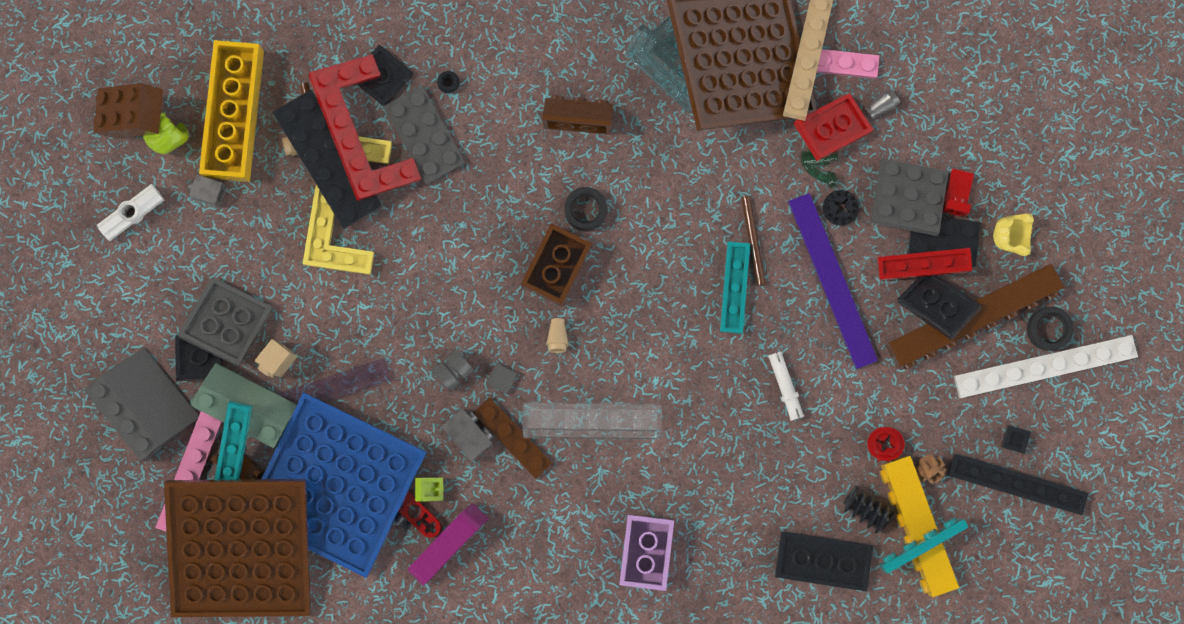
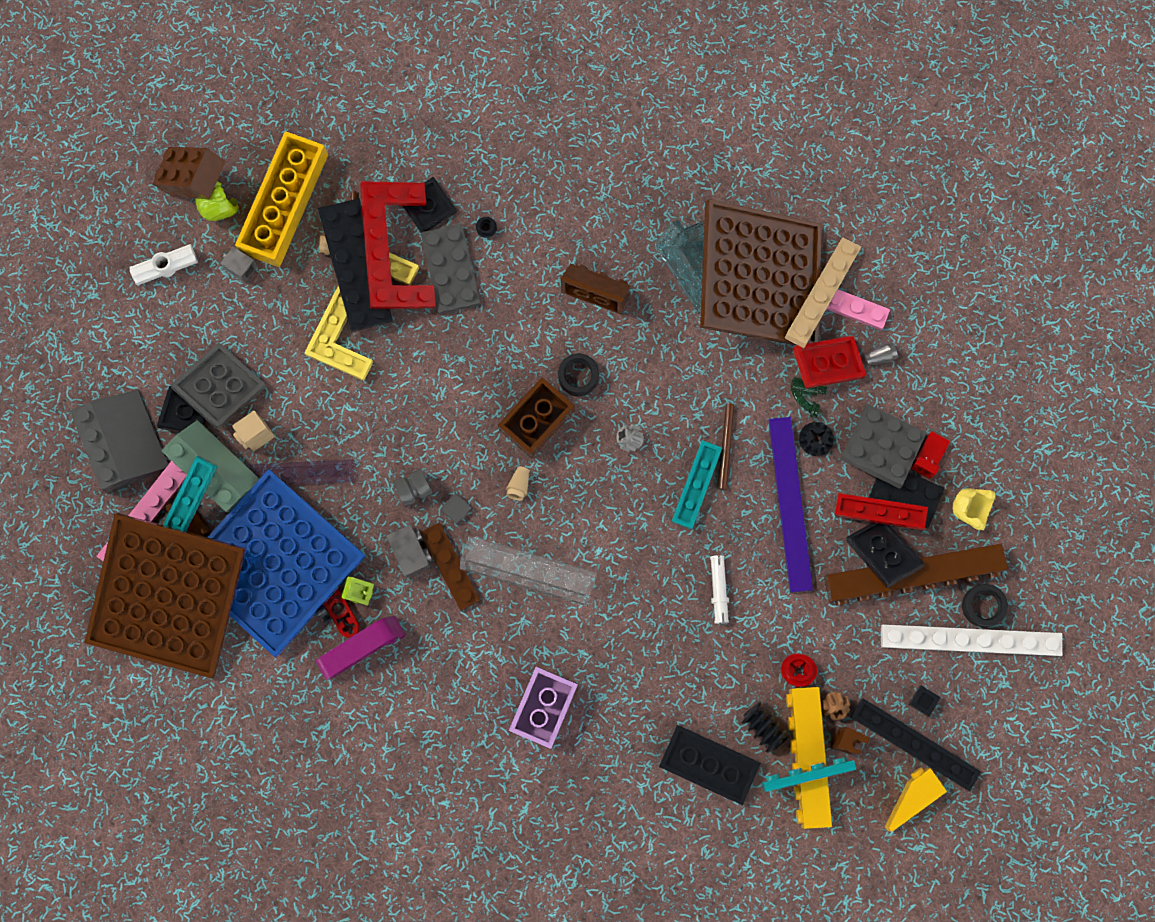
camera: 15 degrees right, 5 degrees down
(655, 259) = (630, 437): none -> light grey gear
(950, 500) = (846, 739): none -> reddish brown hinge
(1031, 535) = (916, 795): none -> yellow slope

